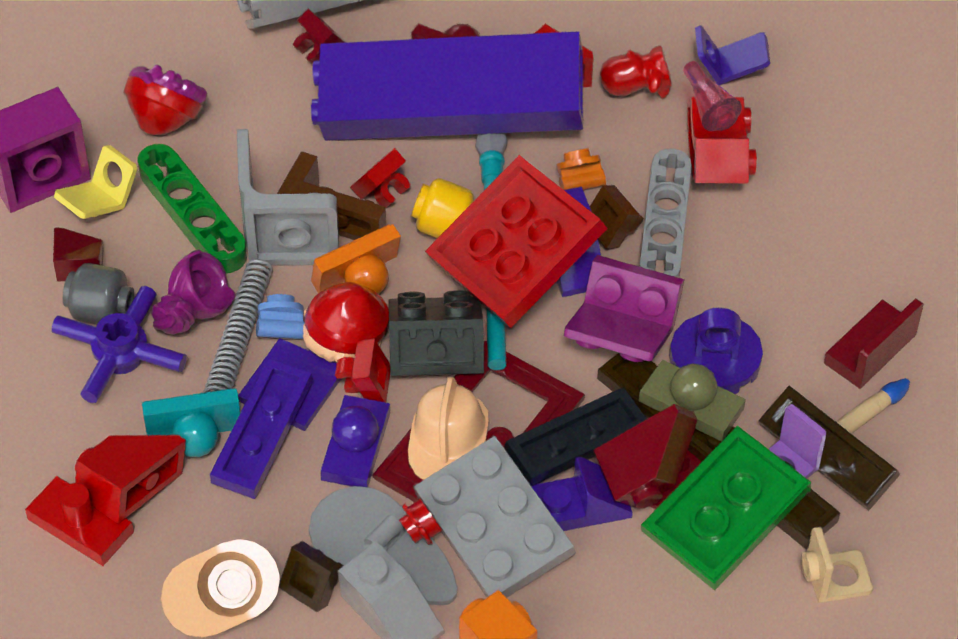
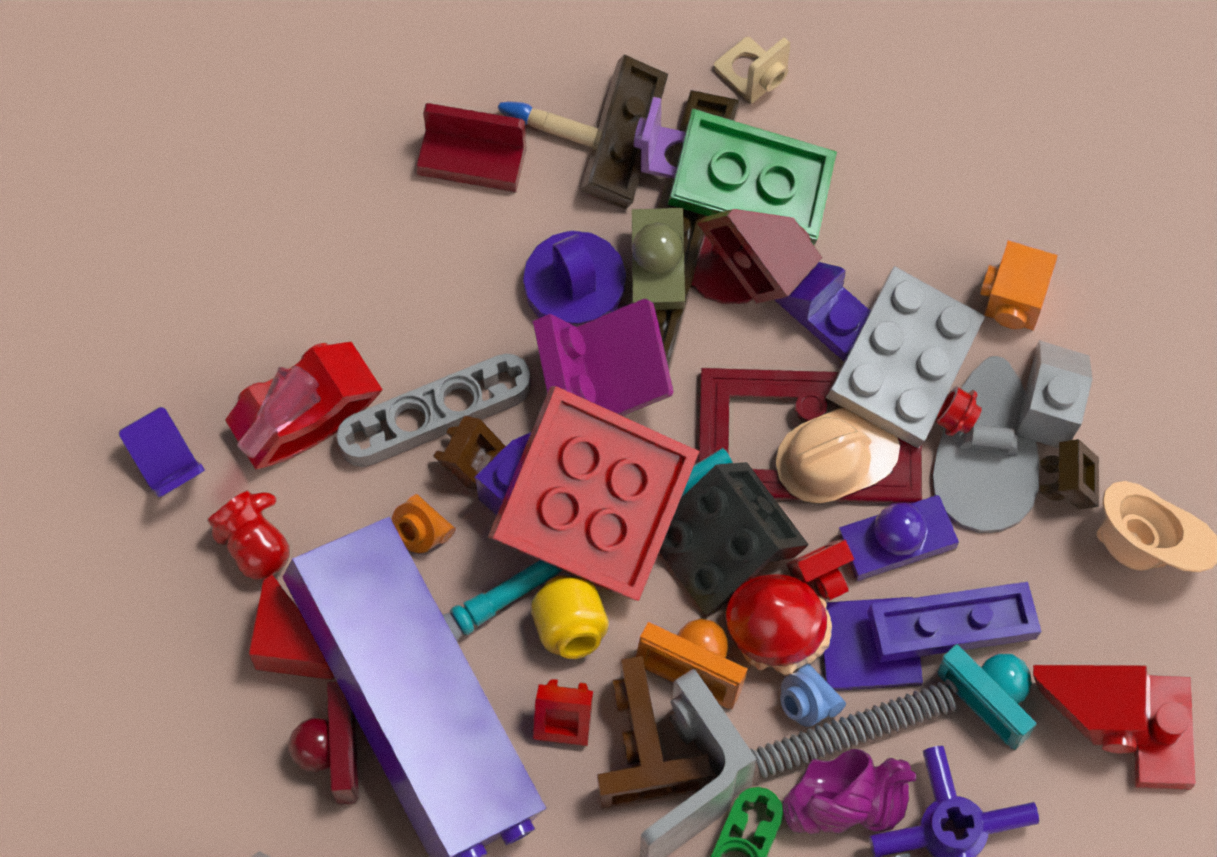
camera: 120 degrees left, 15 degrees up
(558, 442) = (766, 337): black plate -> none

